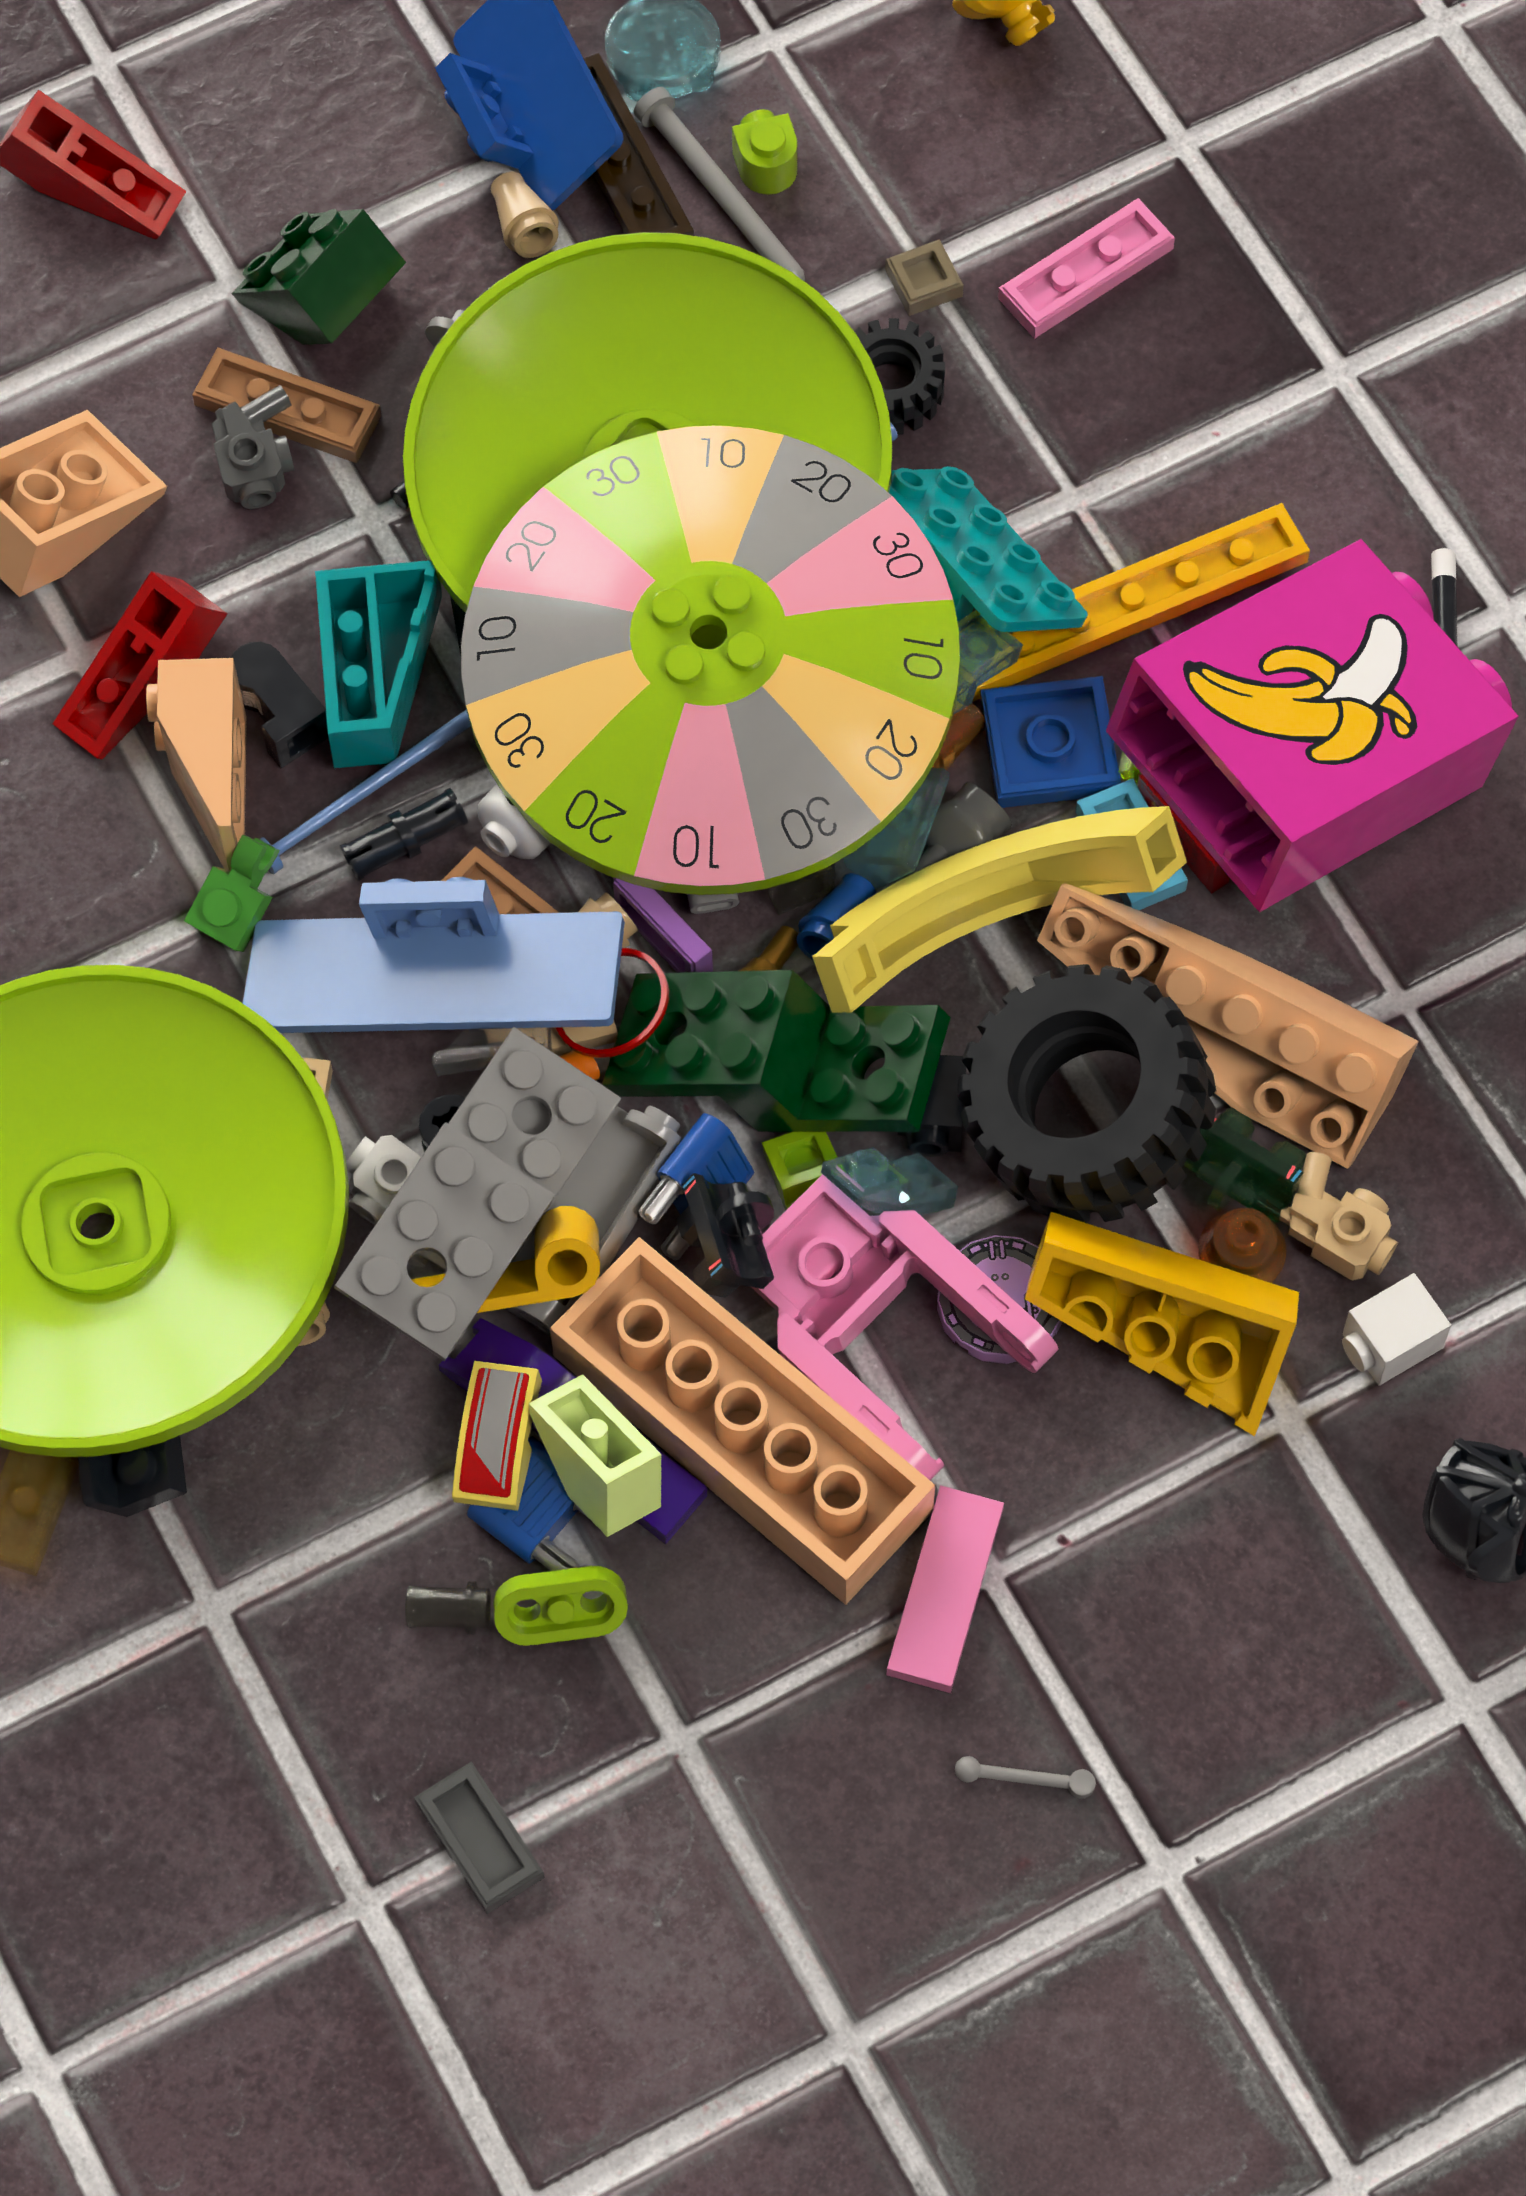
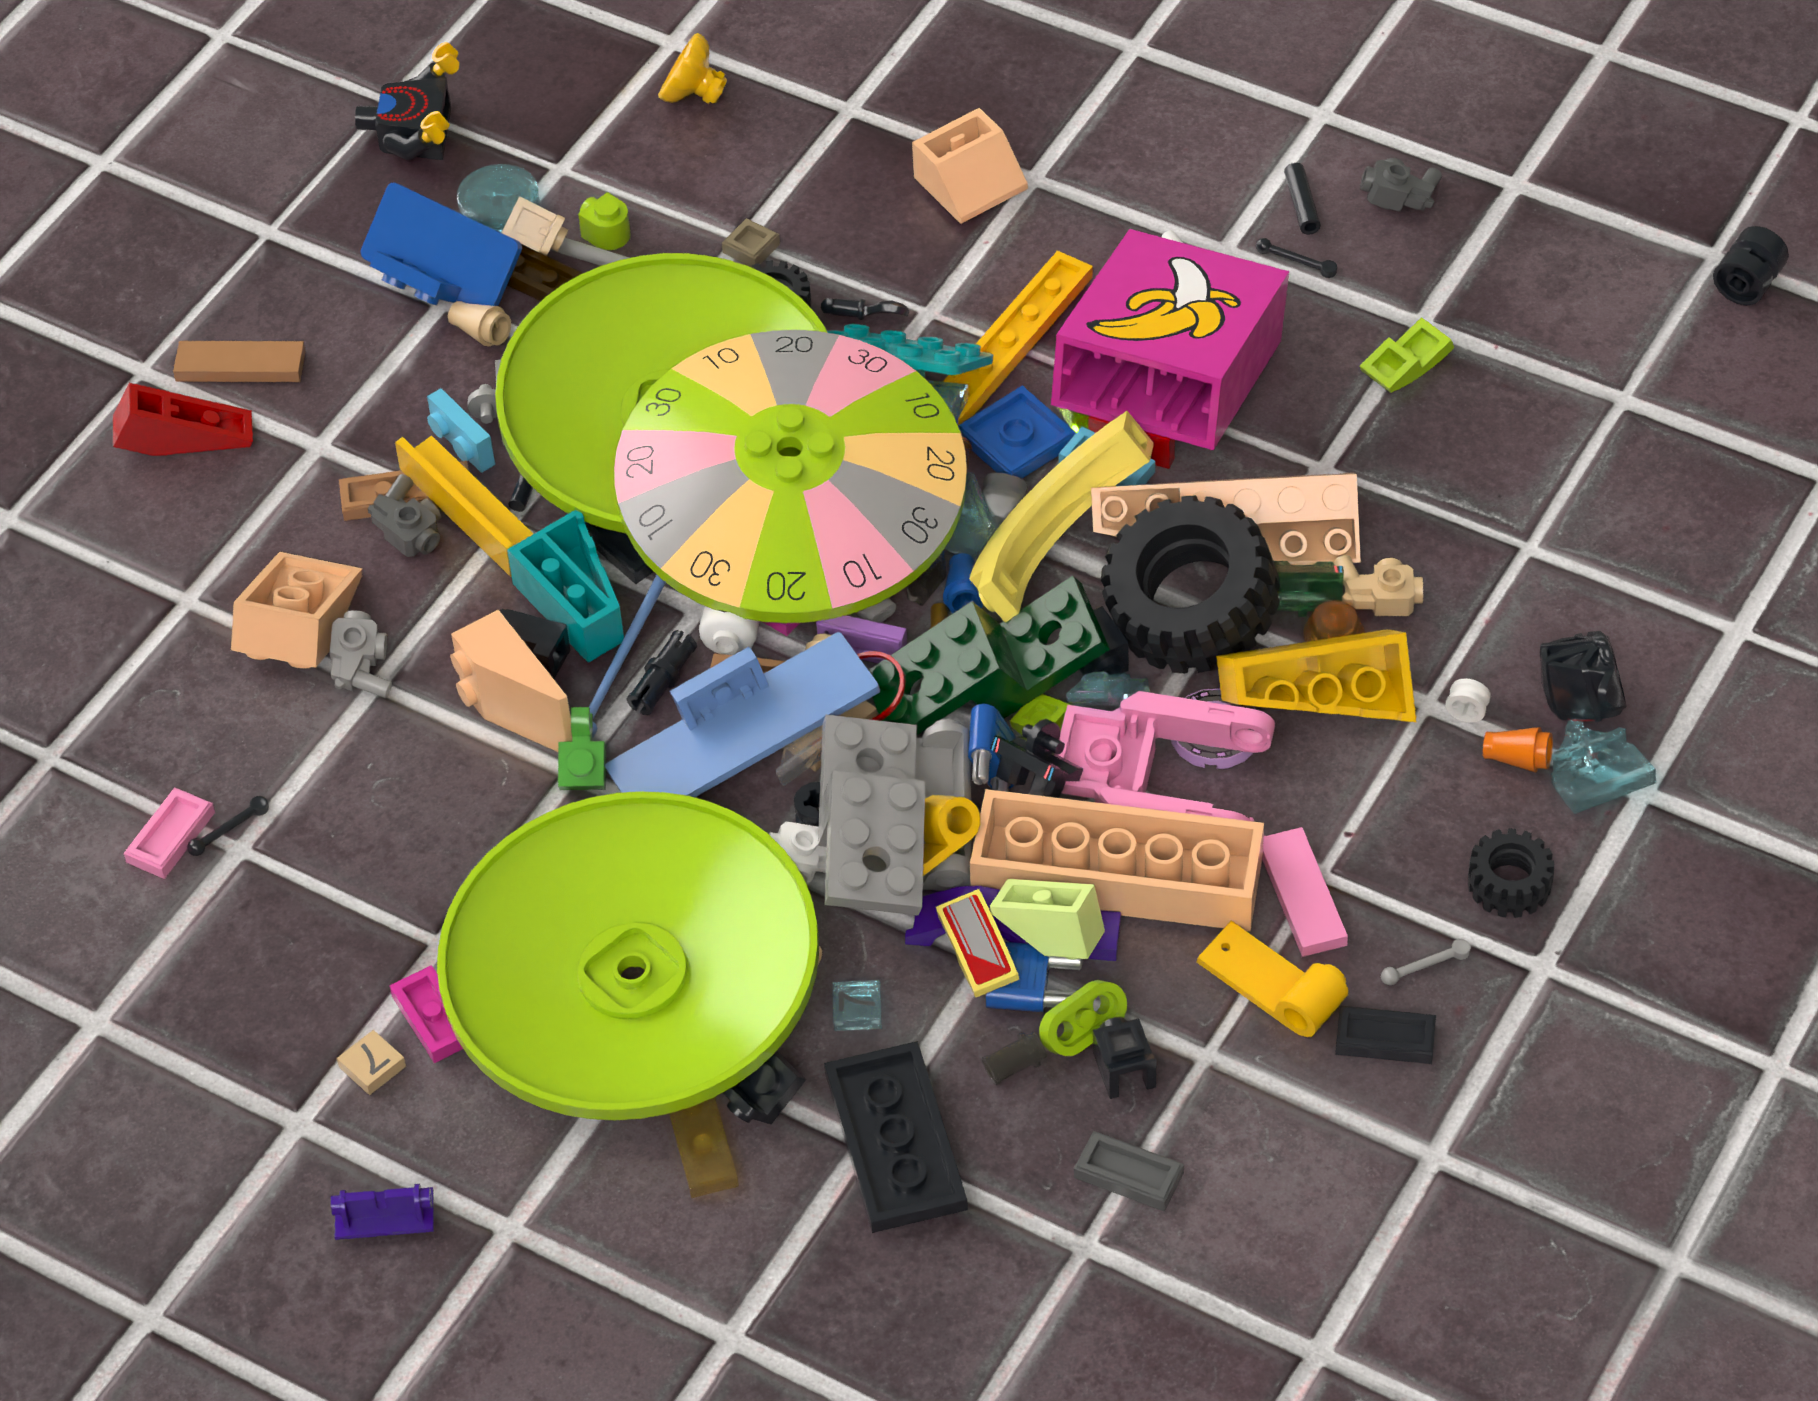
camera: 30 degrees left, 15 degrees down
(76, 595) = (355, 648): none -> light grey piece
(161, 623) = (422, 663): red slope -> none
(216, 114) = (239, 361): none -> medium nougat tile
(241, 1627) = (895, 1137): none -> black plate
(319, 274) = (376, 408): dark green slope -> none
(322, 1422) = (857, 1005): none -> clear light blue tile
(334, 461) = (462, 498): none -> yellow panel
(390, 338) = (465, 434): none -> medium azure plate
(573, 1682) = (1122, 1049): none -> black window
(664, 119) = (535, 227): none -> tan bracket
(821, 1692) = (1273, 983): none -> yellow door
(906, 1845) = (1385, 1034): none -> black tile
(990, 450) = (858, 309): none -> black piece
(1086, 268) = (844, 194): bright pink tile -> none
(1219, 1682) = (1507, 894): none -> black tyre
(1255, 317) = (968, 166): none -> light nougat slope
(1332, 1448) = (1468, 700): none -> white bush
(1351, 1556) = (1520, 748): none -> orange cone
(1394, 1330) = (1455, 622): white brick -> none
(1430, 1636) = (1597, 767): none -> clear light blue slope

